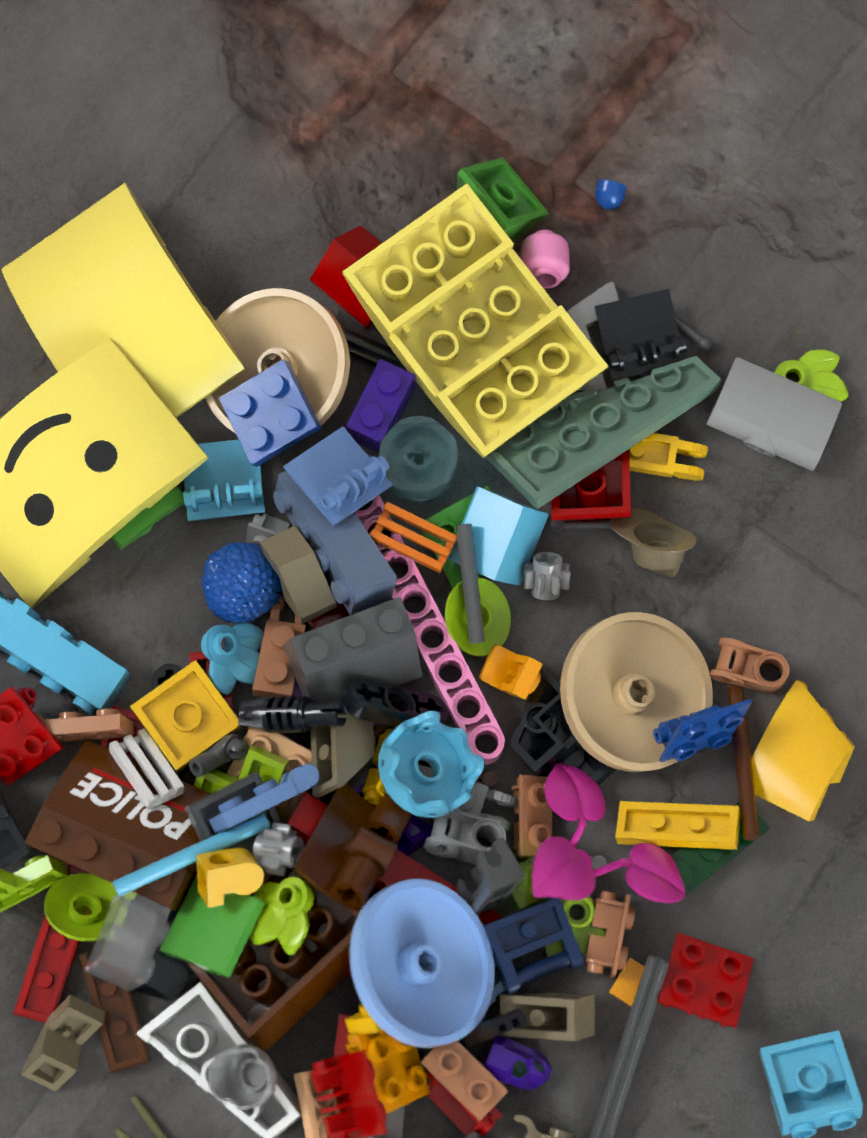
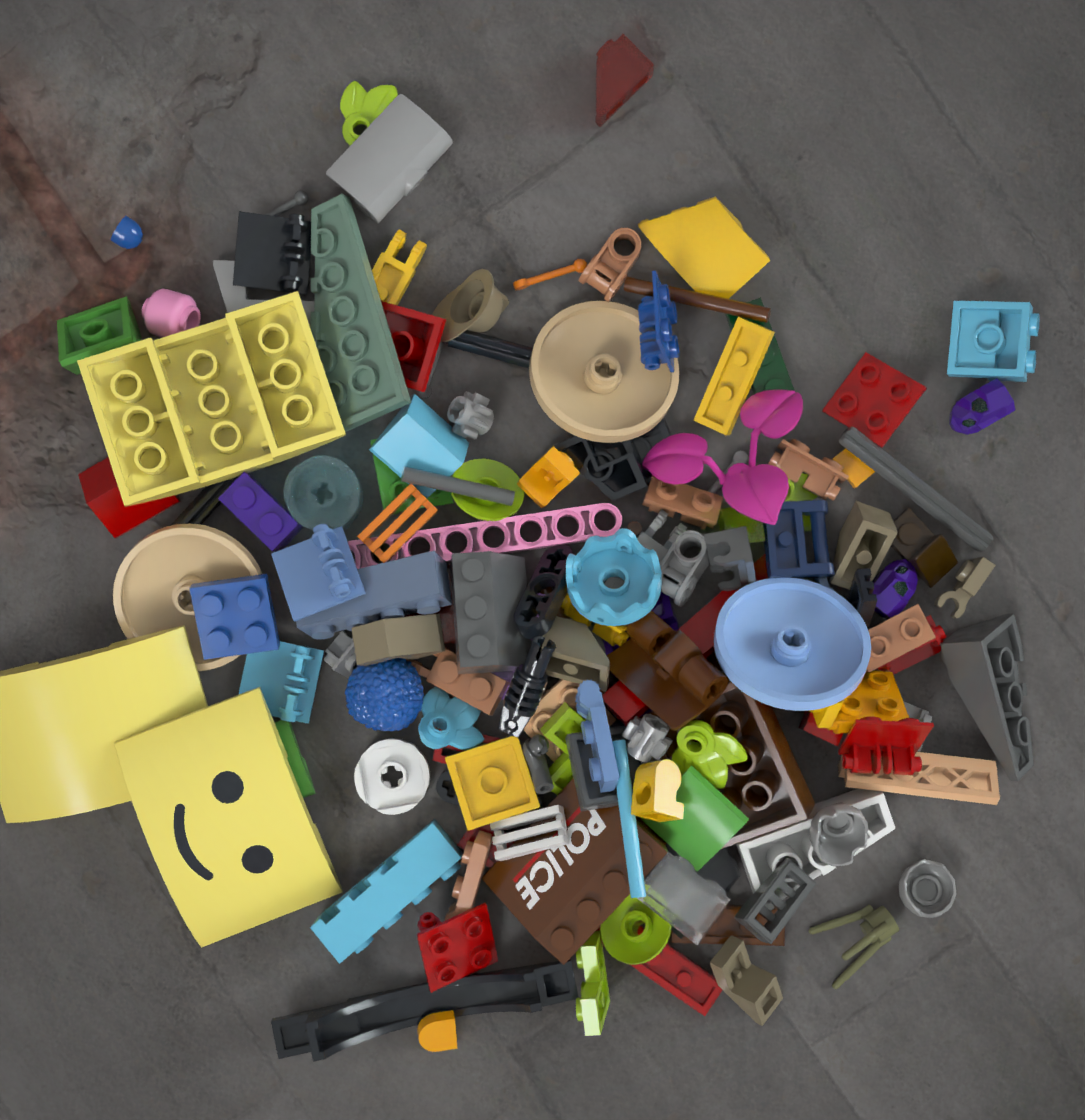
camera: 75 degrees left, 10 degrees up
(139, 613) = (379, 793): none -> white plate
(148, 1052) = (765, 893): none -> dark grey slope
(569, 1082) = (922, 548): none -> dark brown slope
(622, 574) = (492, 348): none -> black axle
(698, 586) = (578, 266): none -> orange hinge
(736, 1096) = (981, 408): none -> dark purple rock

